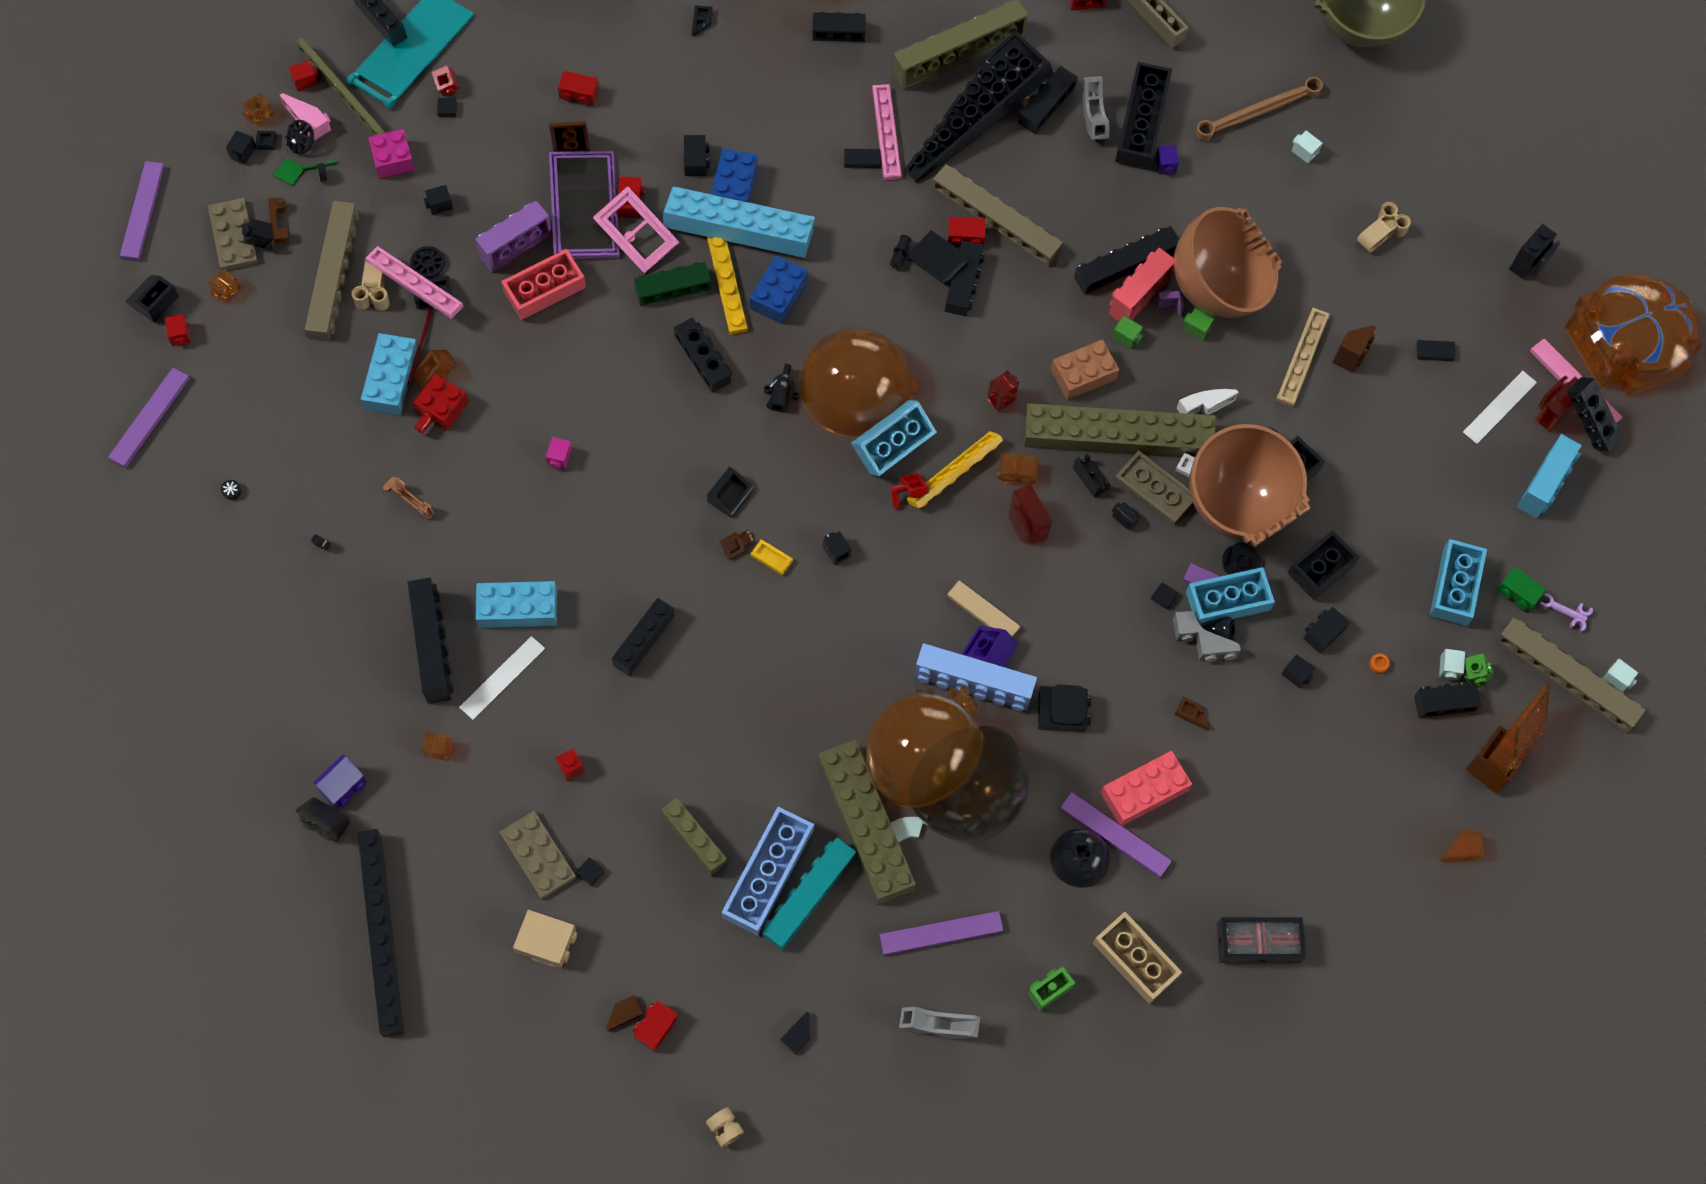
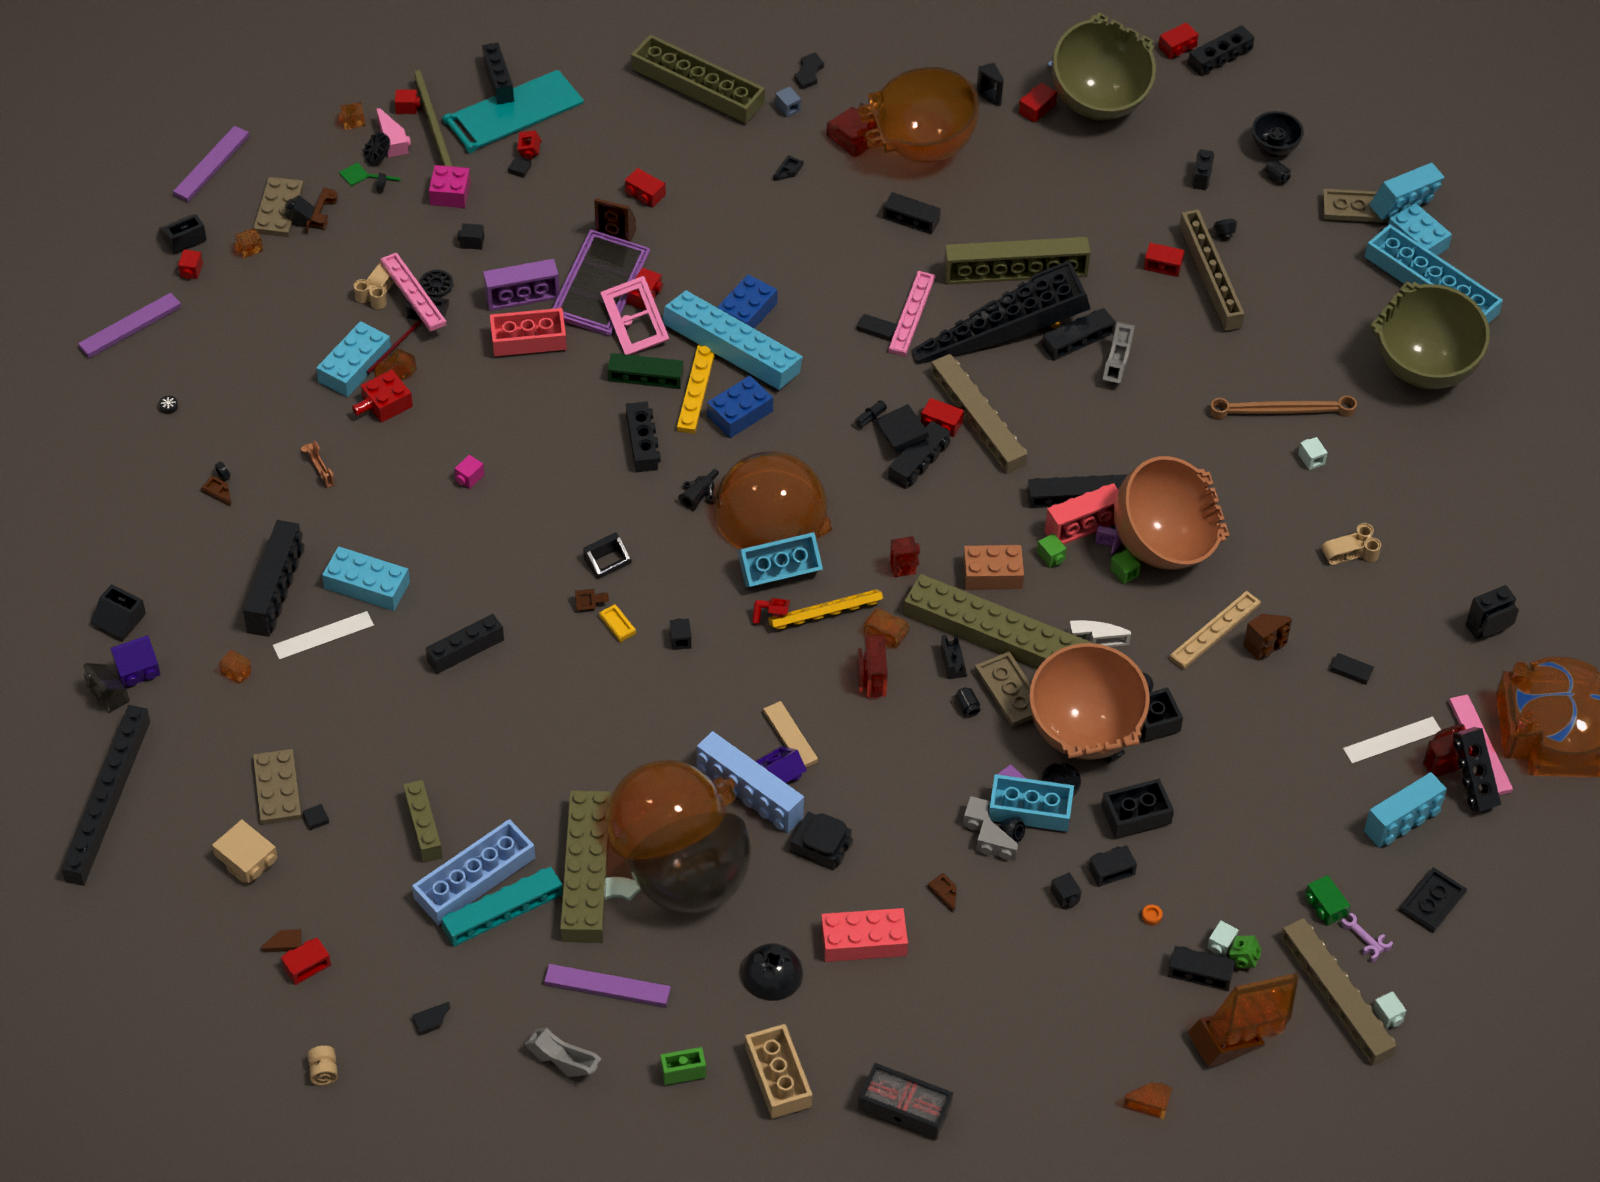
camera: 25 degrees right, 15 degrees down
(240, 147) = (322, 140): black brick -> none
(266, 140) = (347, 143): black tile -> none
(295, 735) = (118, 612): none -> black slope
(324, 563) = (217, 489): none -> reddish brown tile
(331, 271) = (347, 262): dark tan brick -> none
(570, 764) = (343, 722): red brick -> none
(695, 155) = (722, 274): black piece -> none
(1115, 835) = (816, 965): medium lavender tile -> none
(1143, 115) = (1163, 375): black brick -> none
(1164, 595) = (970, 782): black tile -> none
(1167, 159) = (1168, 420): dark purple brick -> none
(1458, 582) = (1264, 870): medium azure brick -> none
(1604, 551) = (1433, 900): none -> black tile

